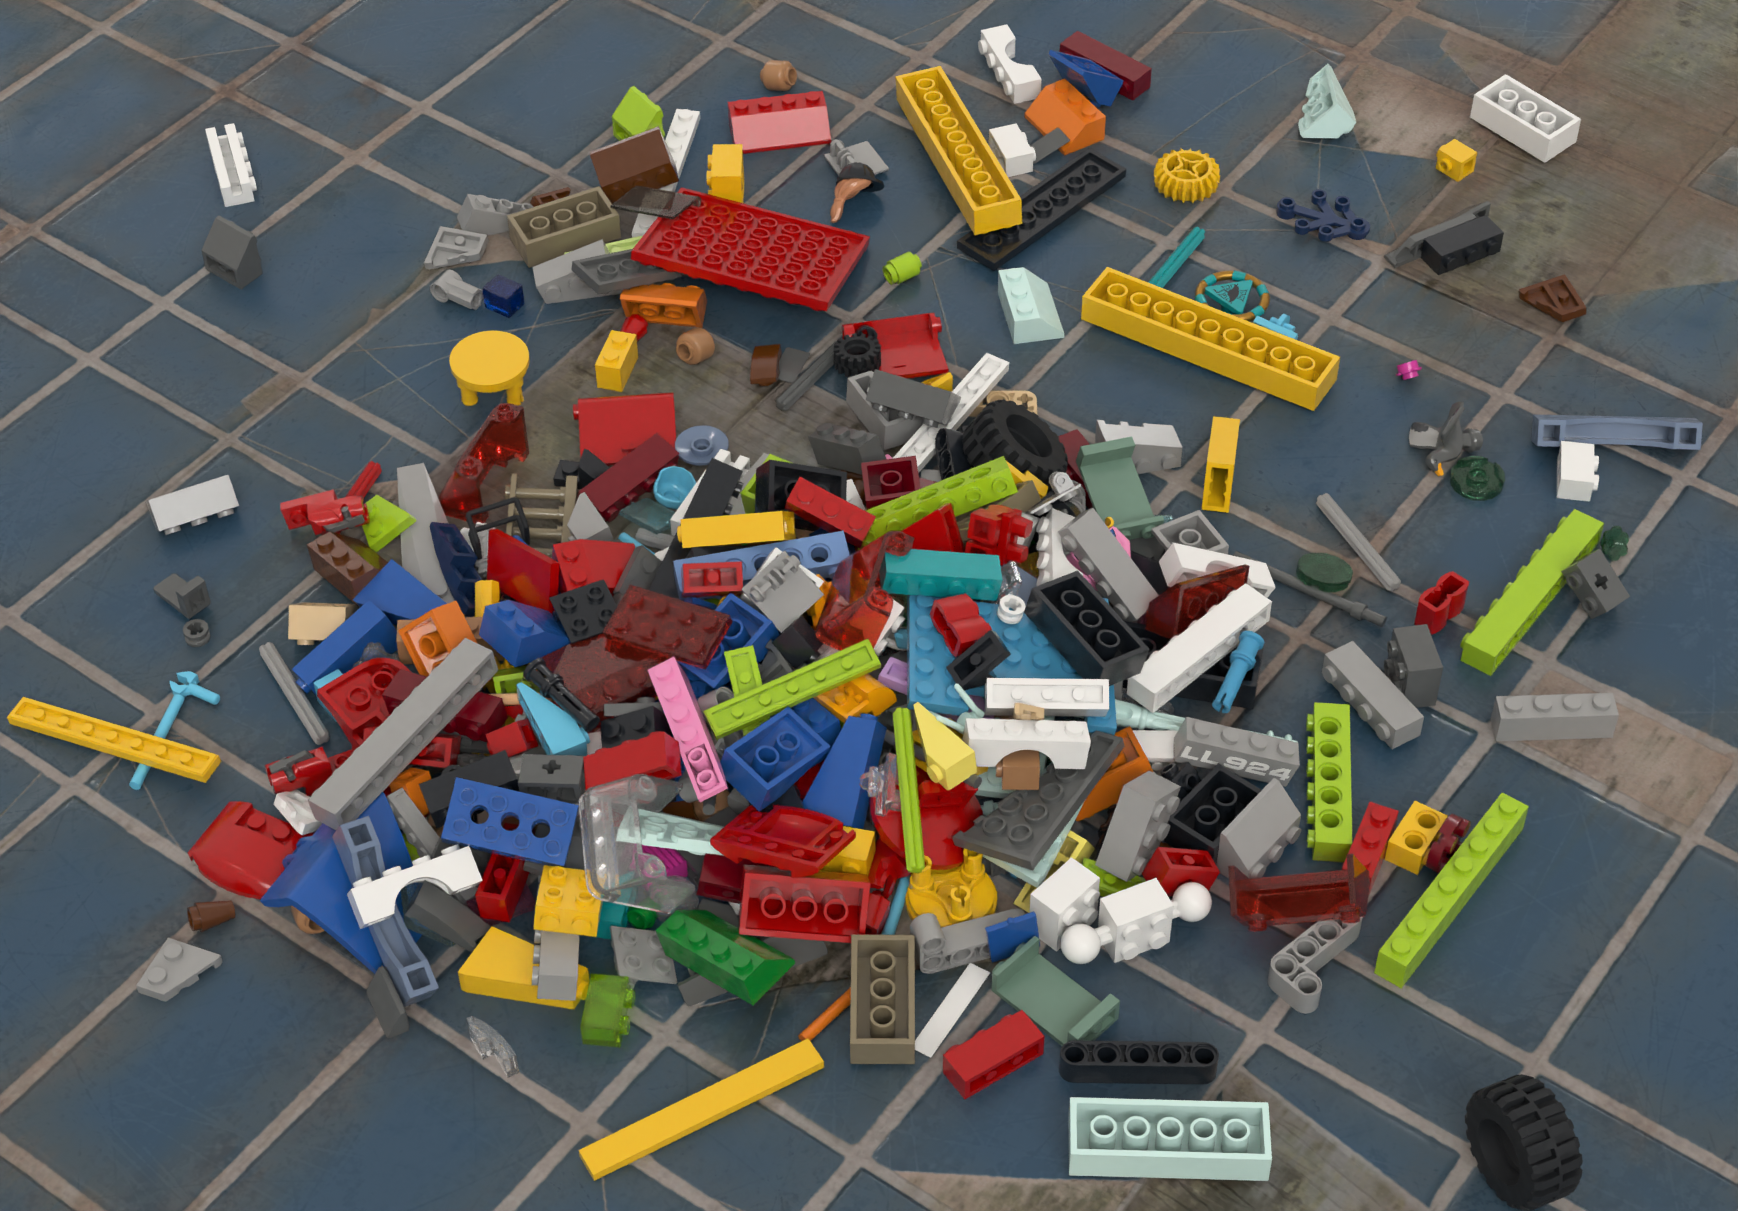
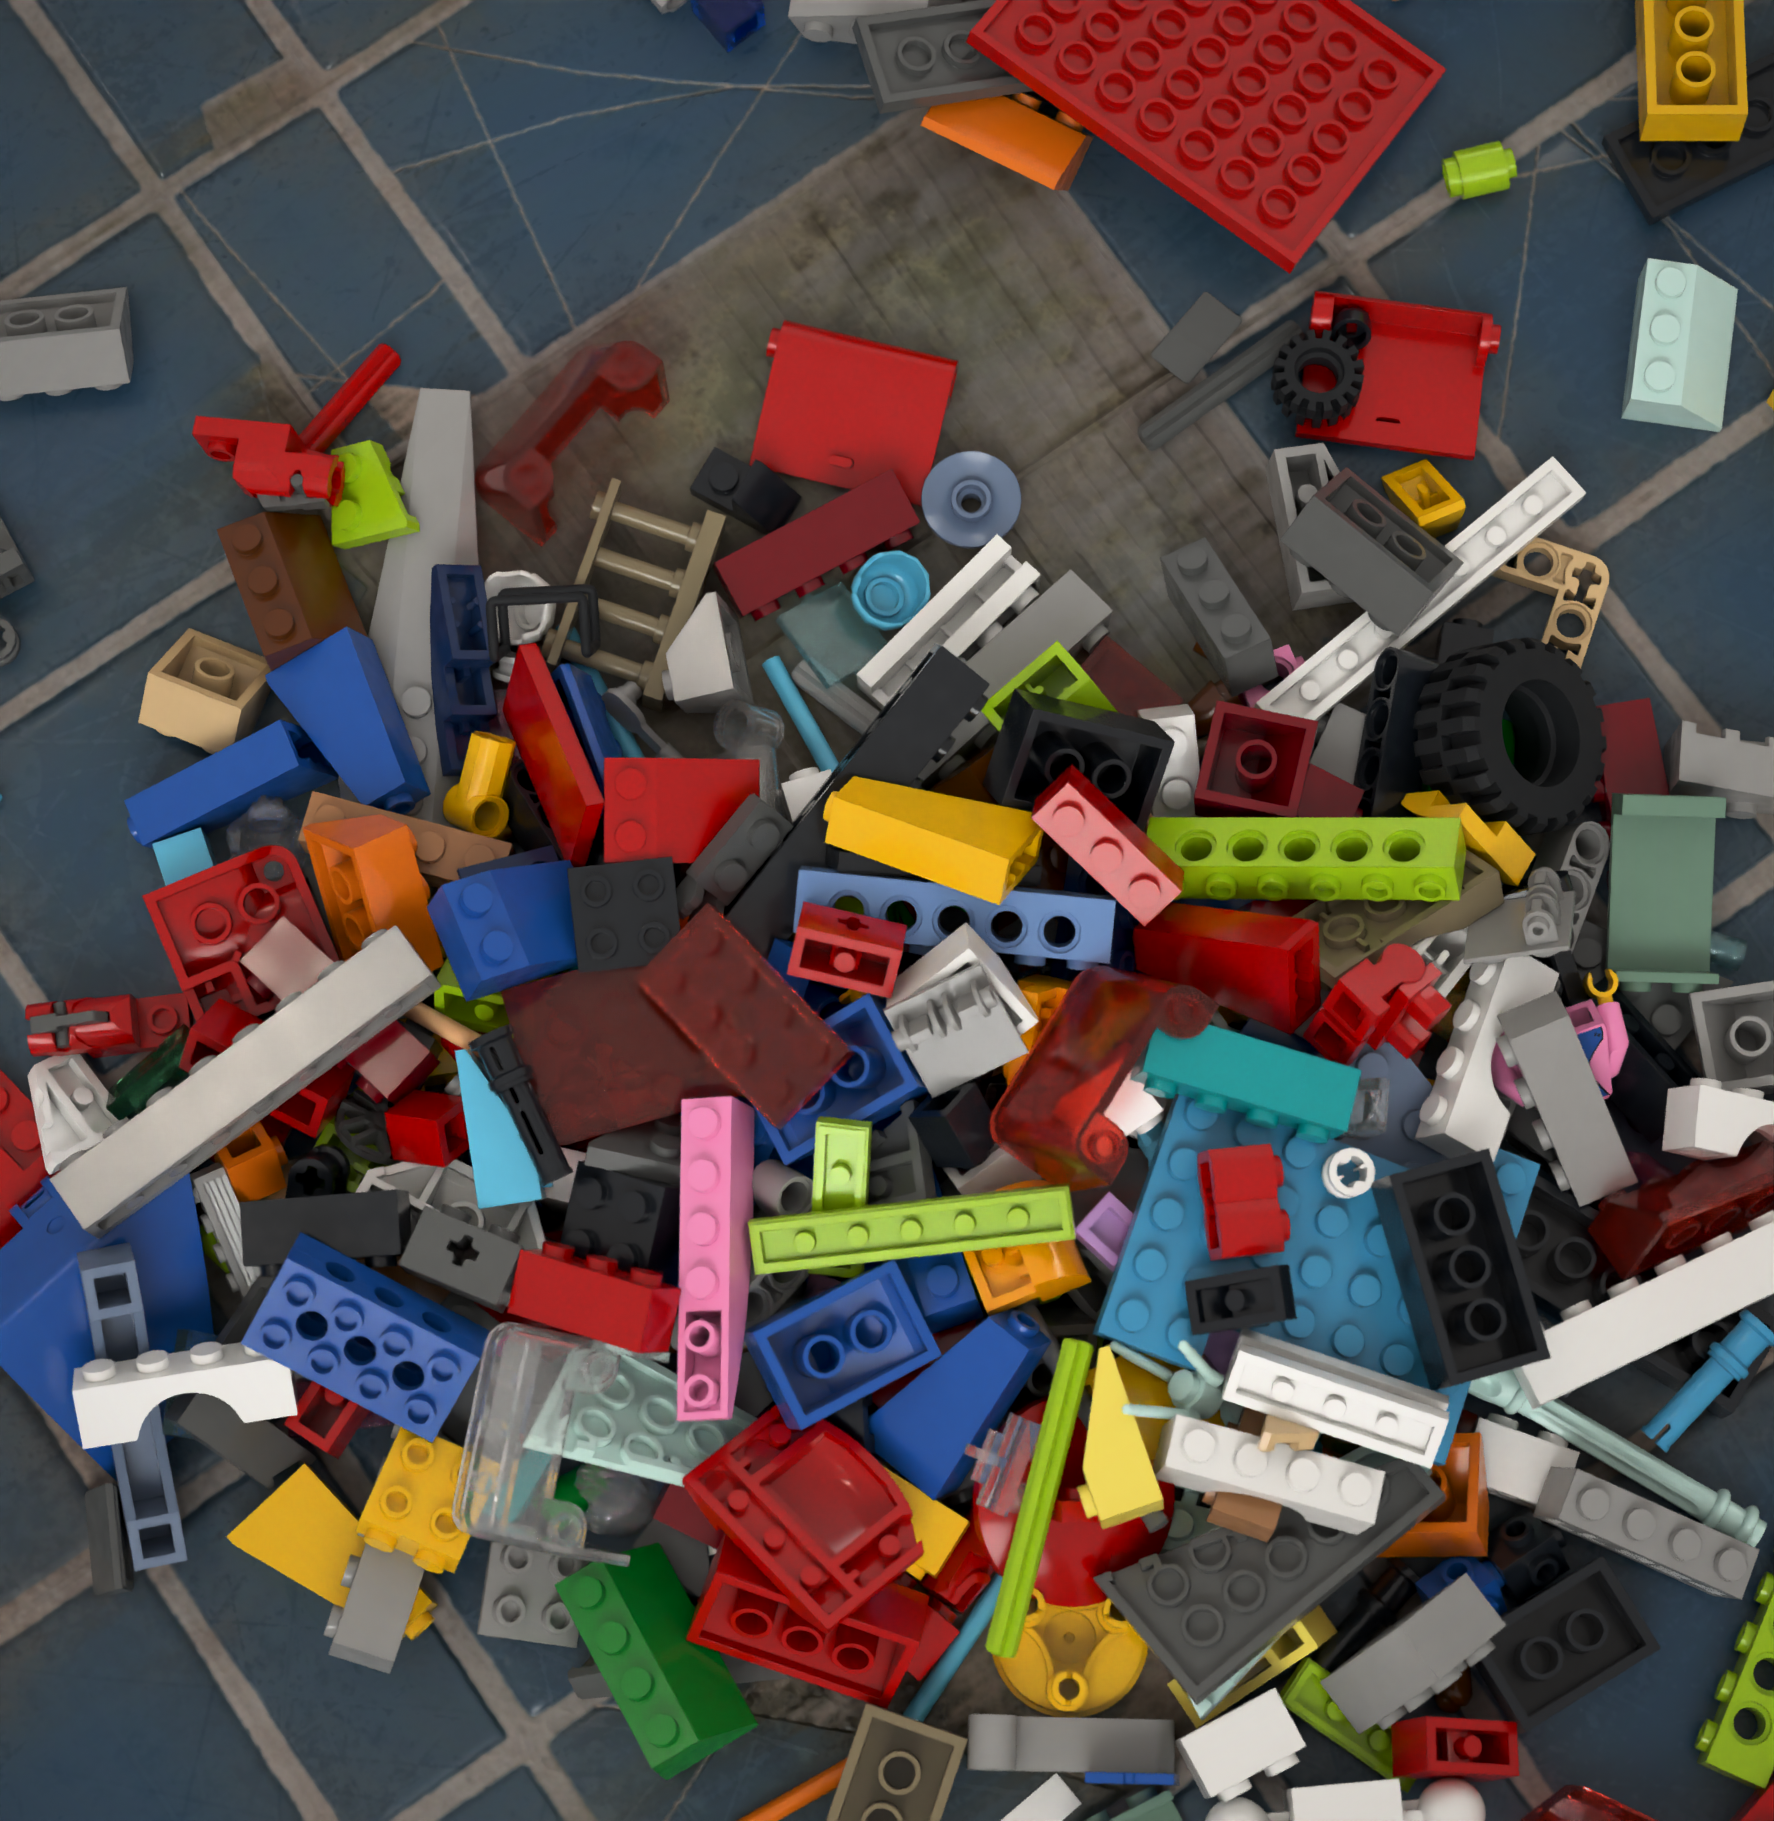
camera: 20 degrees right, 30 degrees up
(294, 693) = (125, 849): light grey axle -> none
(490, 364) = (646, 199): yellow piece -> none
(490, 1042) = (240, 1670): clear slope -> none
(606, 1010) = (443, 1679): clear neon green piece -> none
(616, 361) = (882, 242): yellow brick -> none
(635, 325) = (931, 174): red cone -> none
(695, 346) = (1035, 250): medium nougat head -> none
(765, 364) = (1148, 334): reddish brown slope -> none
(1259, 832) = (1620, 1715): light grey slope -> none

